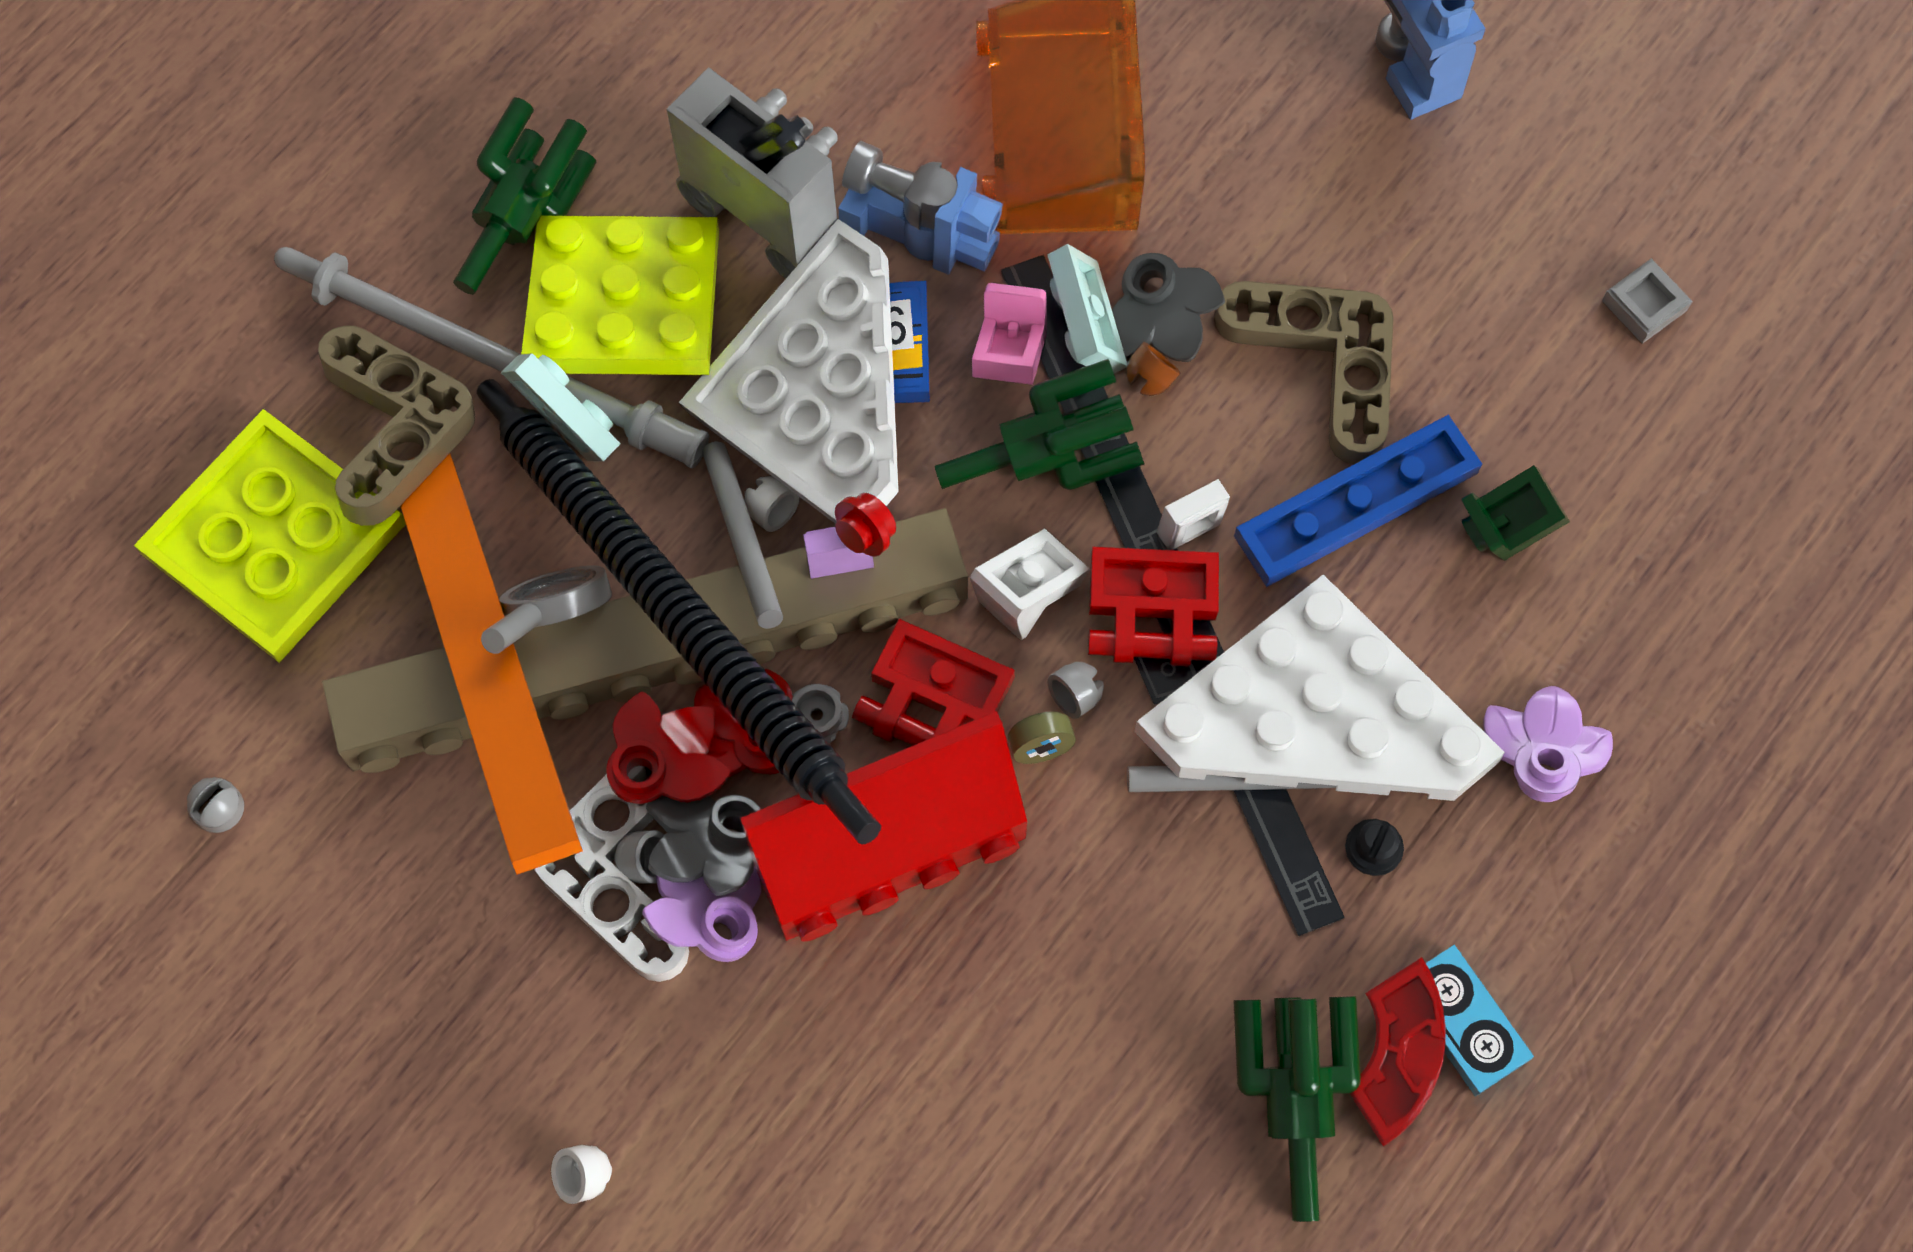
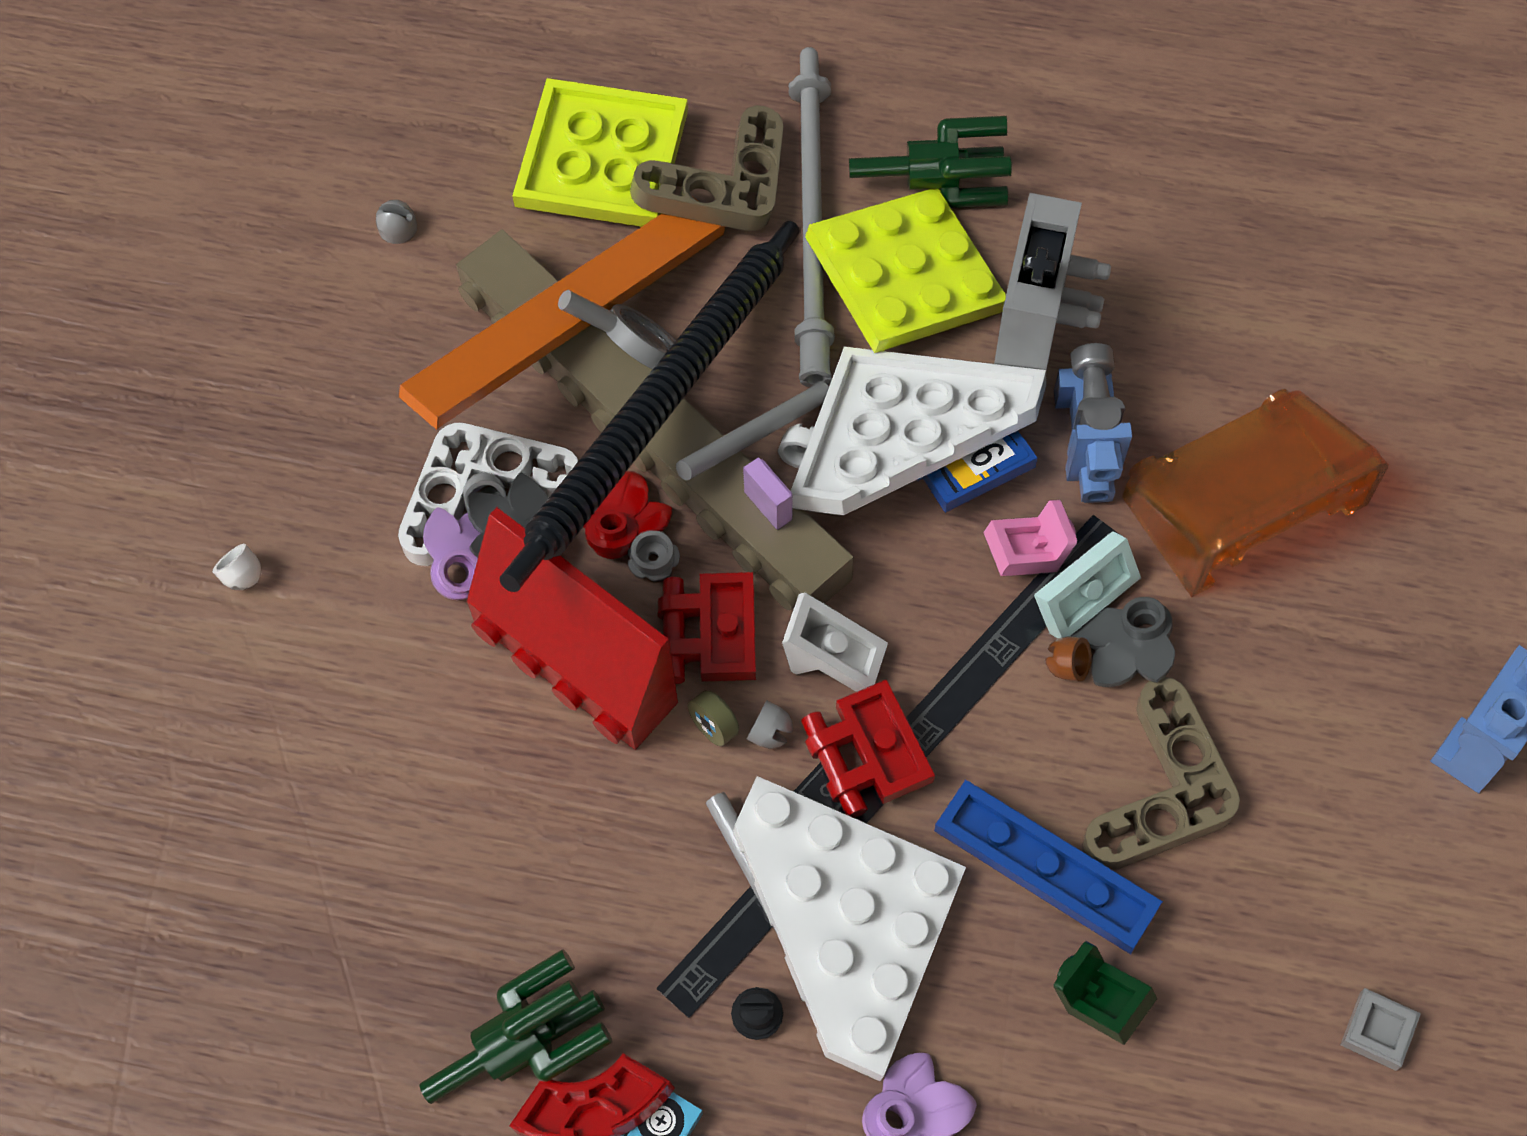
camera: 65 degrees right, 5 degrees down
(579, 423) = (792, 247): light aqua plate -> none
(668, 745) = (564, 447): red plate -> none
(864, 524) = (779, 487): red plate -> none
(1048, 438) = (965, 611): dark green plant -> none
(1193, 515) = (958, 743): white tile -> none

